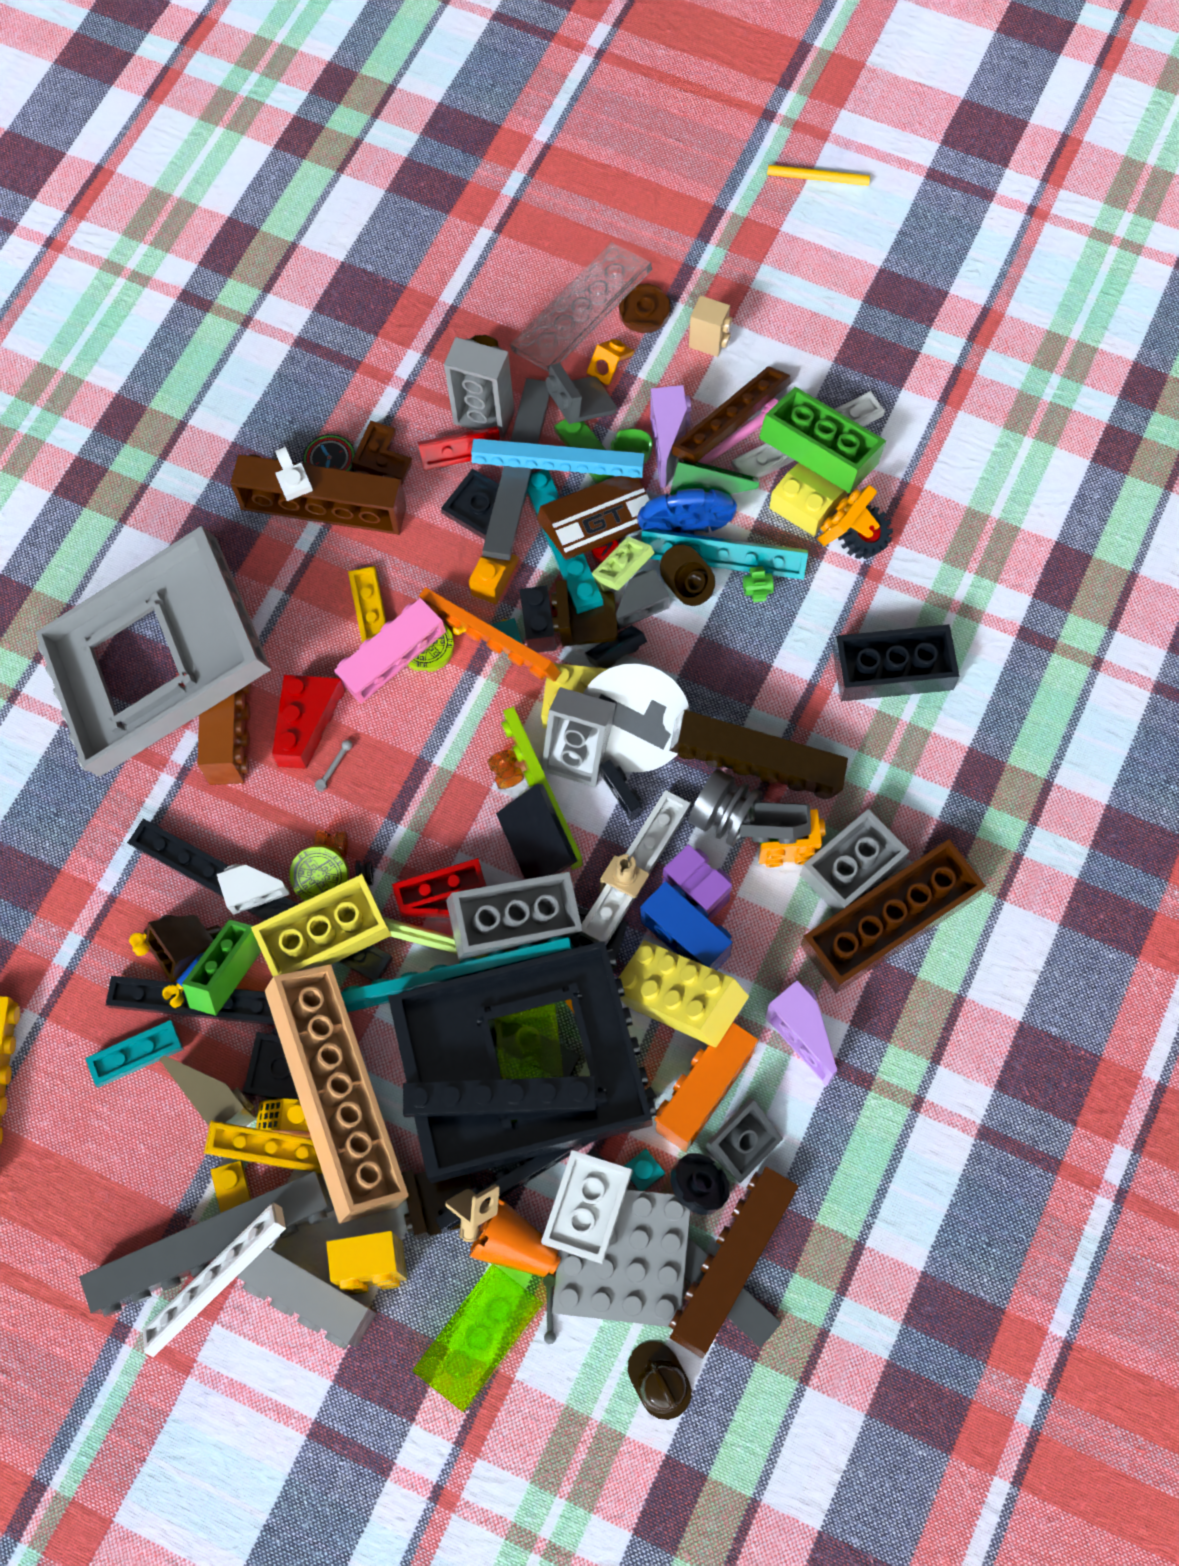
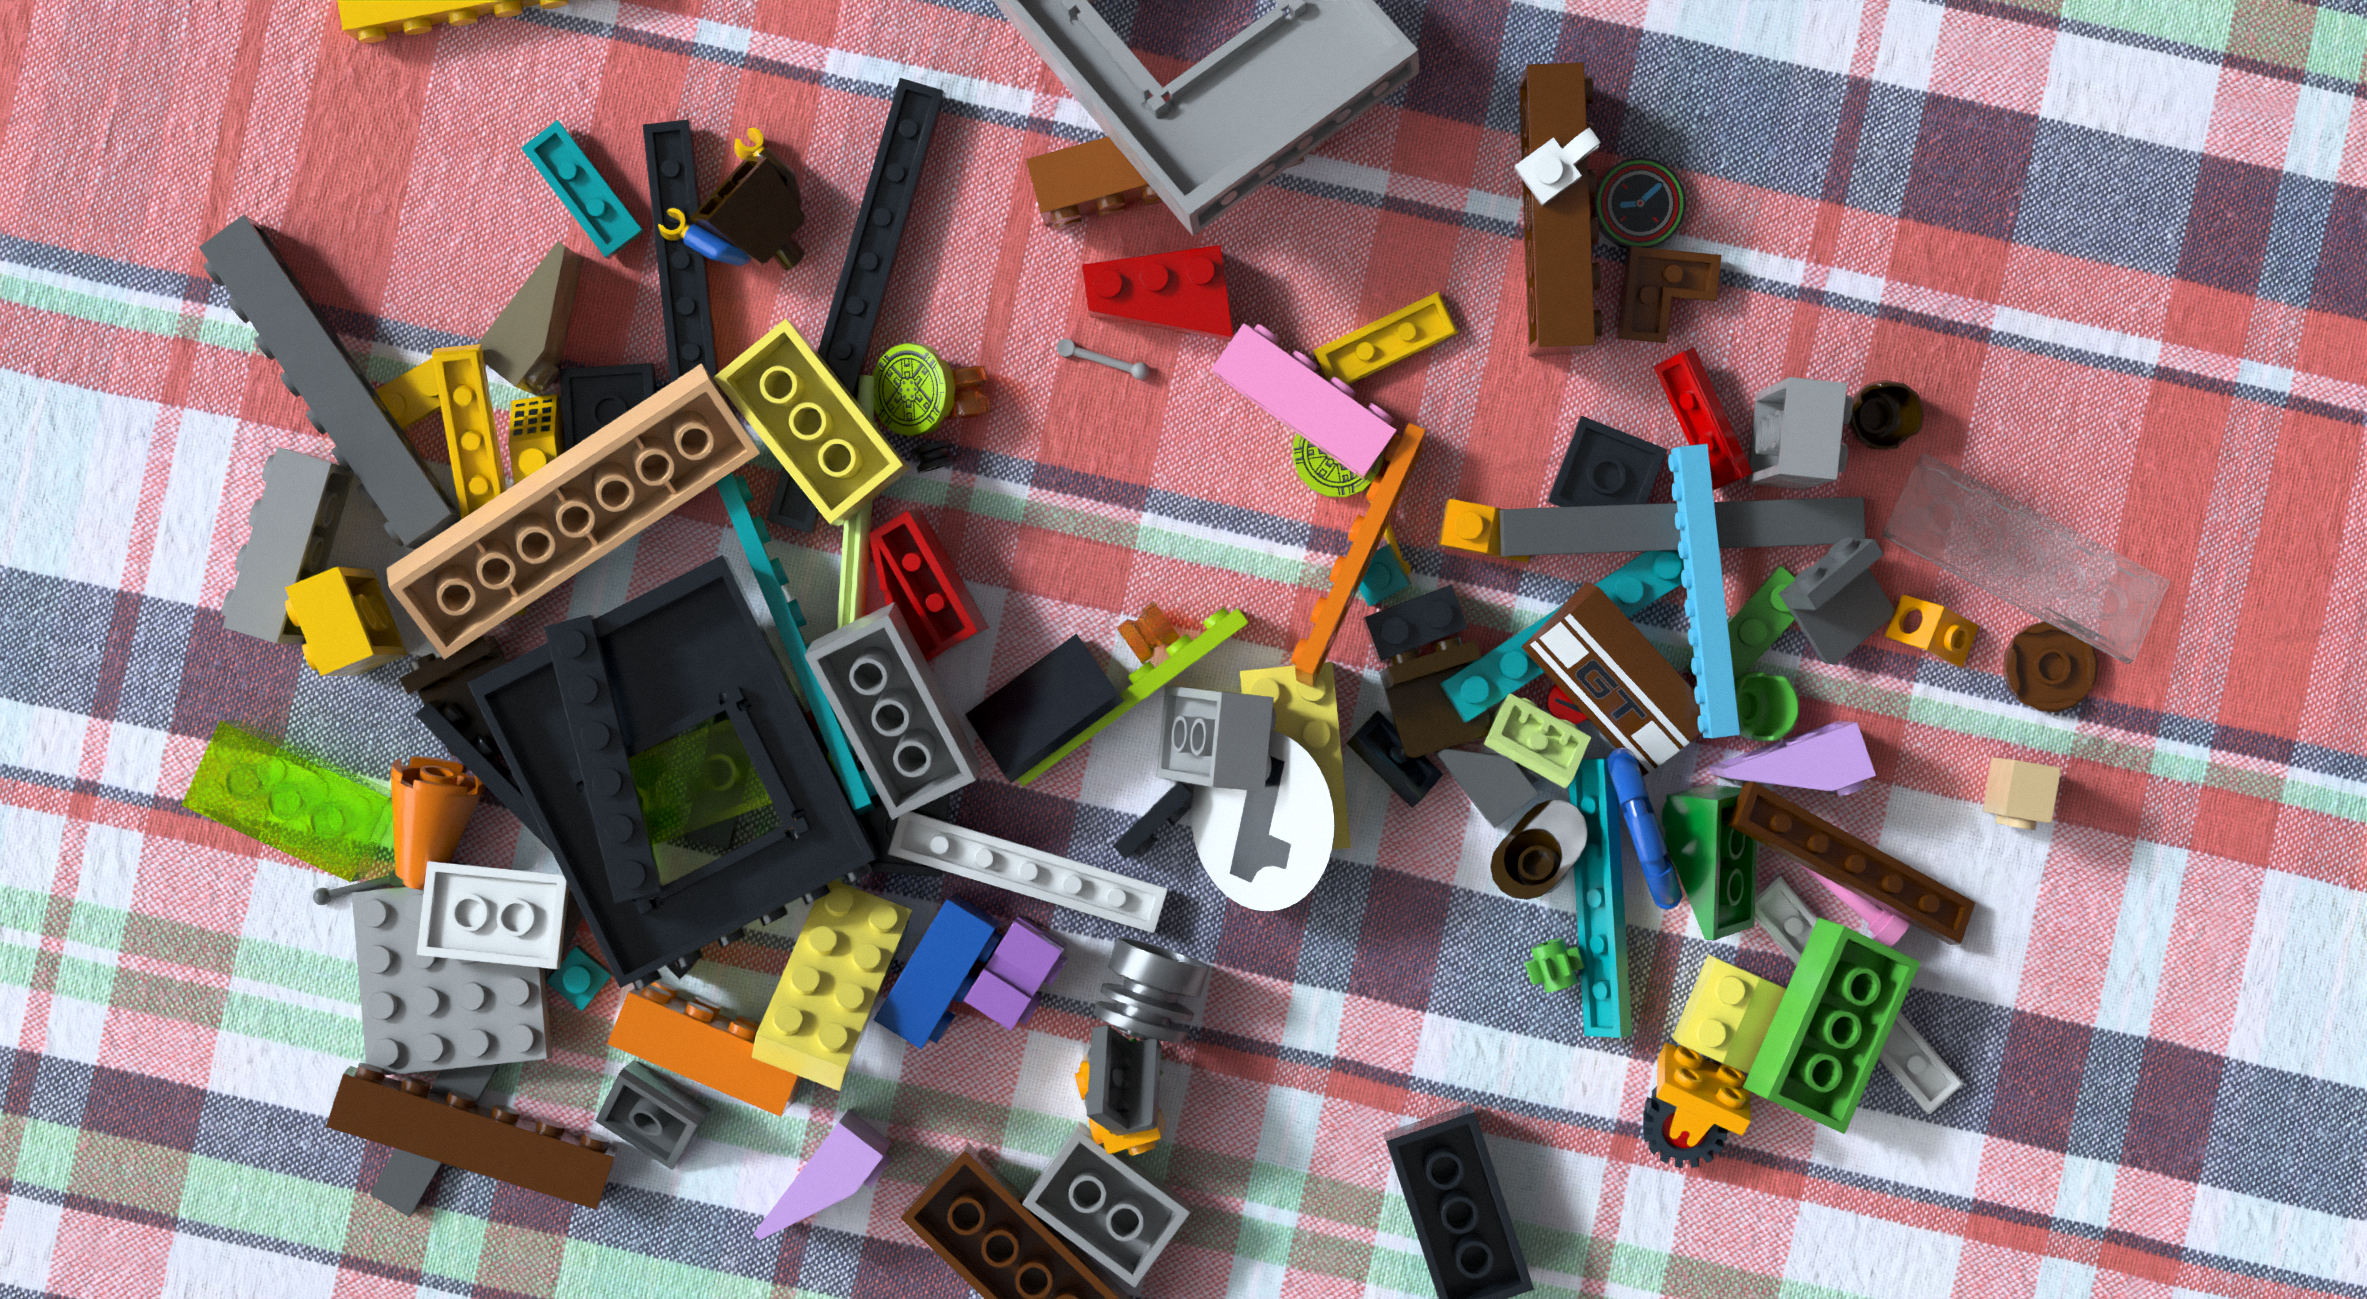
camera: 75 degrees right, 20 degrees up
(213, 1279) = (275, 411): white tile -> none
(221, 967) = (726, 287): bright green brick -> none
(248, 887) = (861, 289): white slope -> none
(474, 1210) = (445, 755): tan bracket -> none
(624, 876) = (1003, 859): tan bracket -> none
(659, 1380) = (300, 1060): dark brown piece -> none
(699, 1184) = (571, 1065): black tile -> none
(758, 754) = (1244, 1025): dark brown brick -> none

